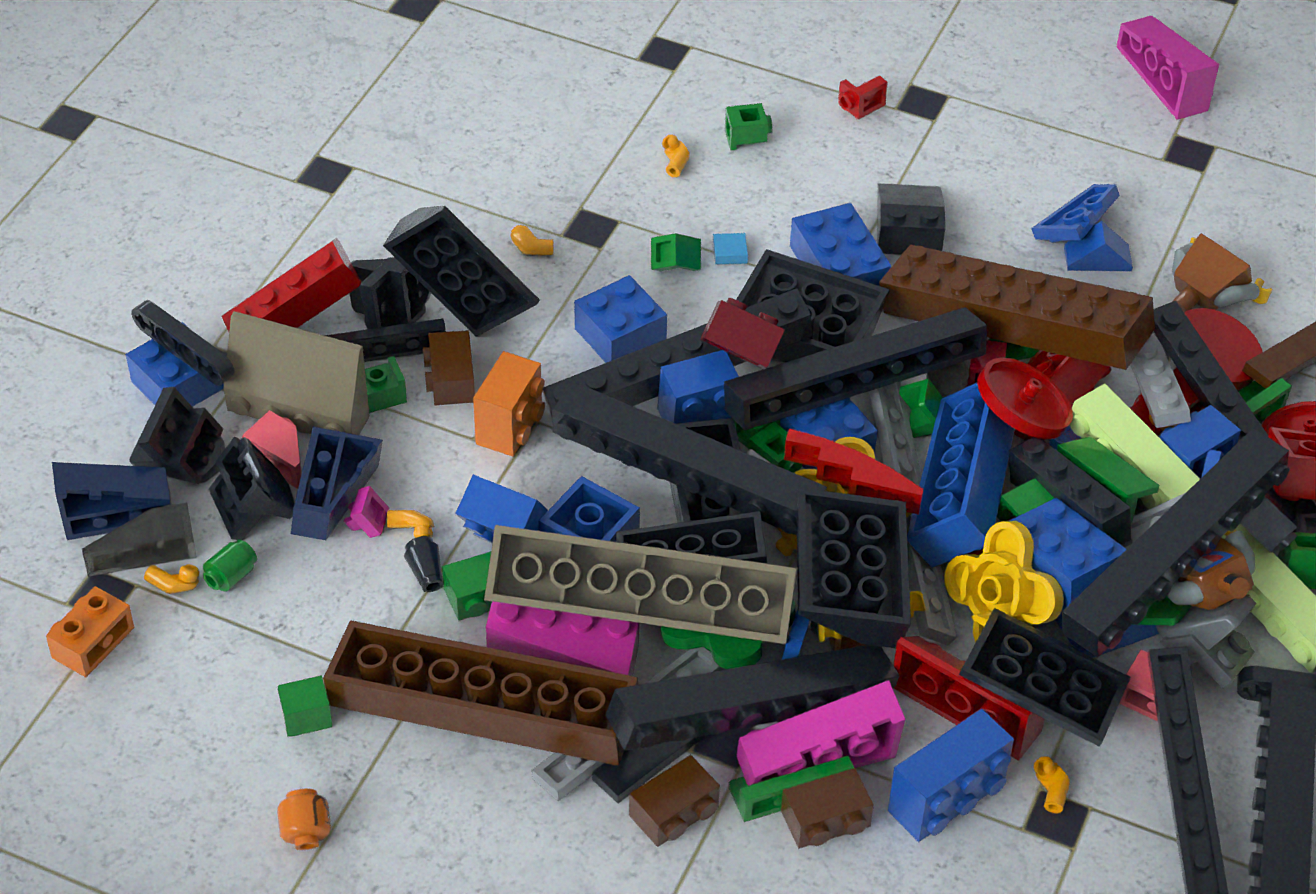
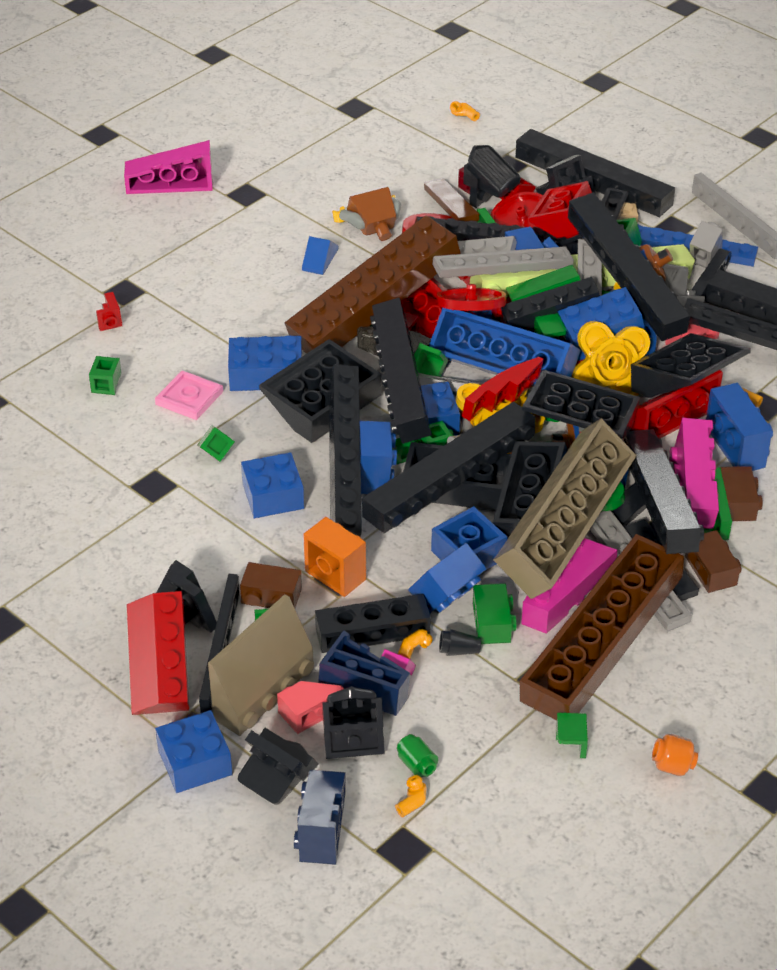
camera: 70 degrees left, 5 degrees down
(90, 631) = (452, 854): orange brick -> none
(147, 540) = (369, 799): clear smoke slope -> none
(183, 342) = (225, 708): black beam -> none
(423, 470) = (373, 621): none -> black brick
(458, 269) = (210, 531): black slope -> none
(529, 244) = (155, 519): light orange arm -> none
(677, 153) = (108, 419): light orange arm -> none
(730, 248) = (221, 417): dark azure tile -> none
(743, 333) = (364, 399): dark red brick -> none
(758, 210) = (189, 395): none -> bright pink tile
(909, 217) = (241, 319): black slope -> none
(1078, 215) = (287, 249): blue wing -> none
(1120, 411) = (502, 262): none -> light grey plate

